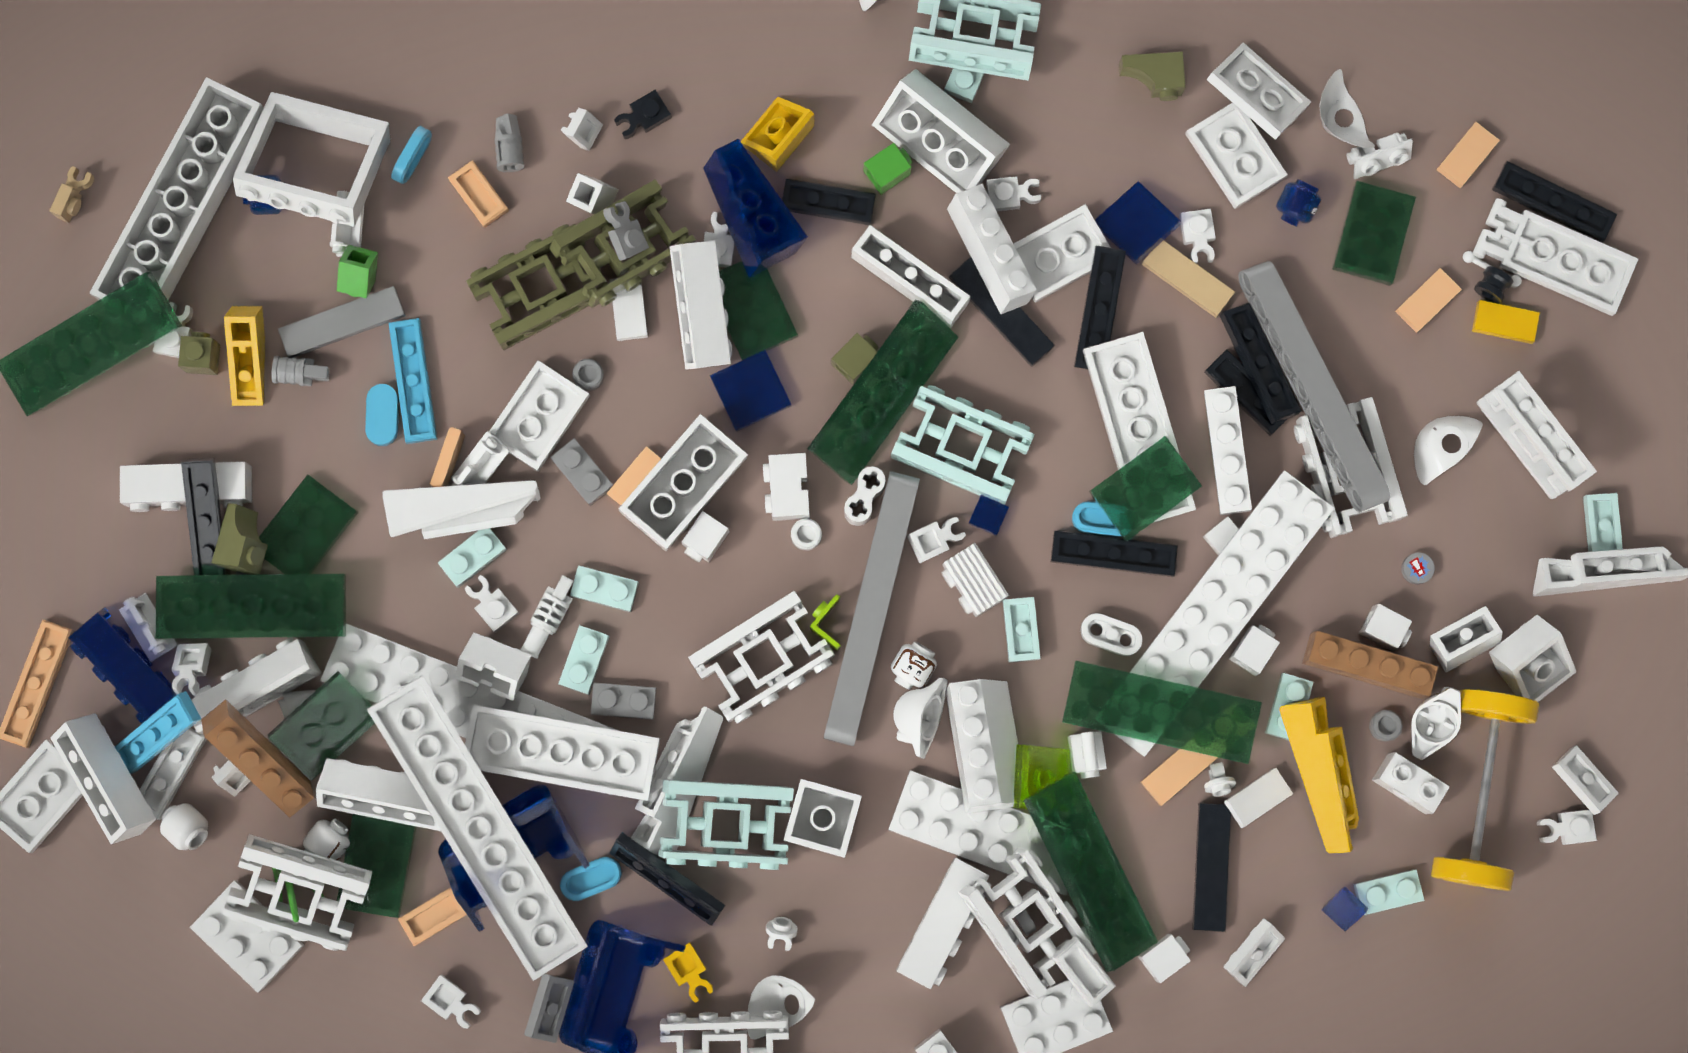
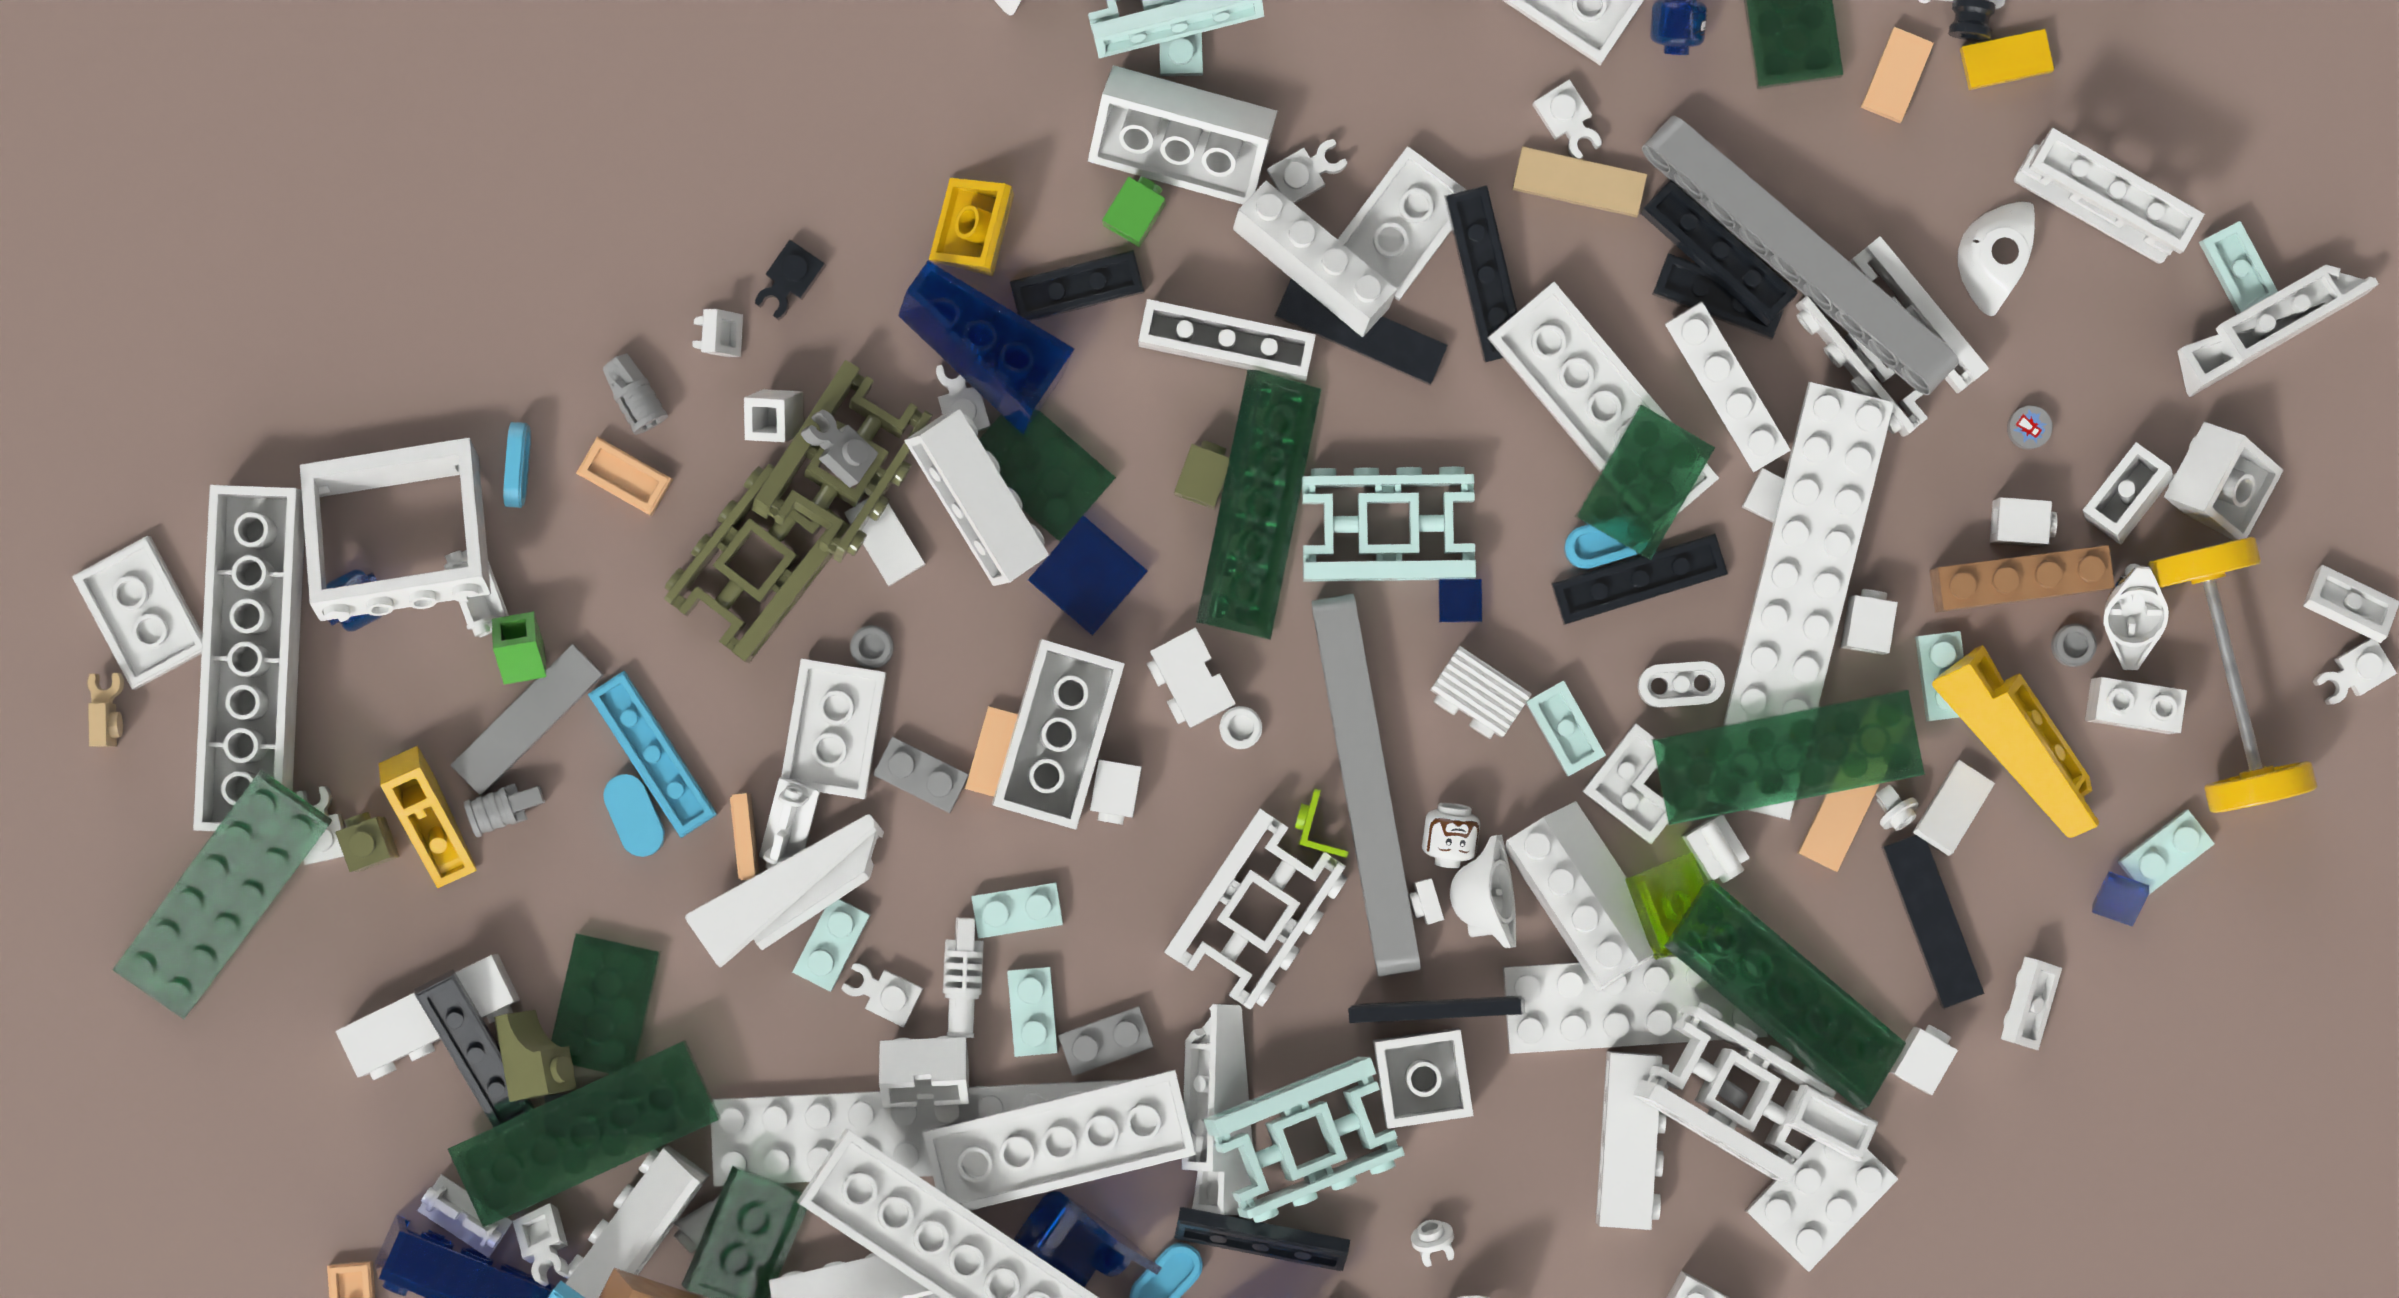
camera: 20 degrees left, 5 degrees up
(124, 143) = (140, 612): none -> white tile
(852, 776) = (1436, 1009): none -> black tile
(864, 496) = (1293, 647): white axle -> none
(877, 702) = (1425, 902): none -> white plate
(931, 540) = (1403, 665): white plate -> none
(1041, 687) = (1621, 786): none -> white plate
(1137, 222) = (1484, 139): clear blue tile -> none

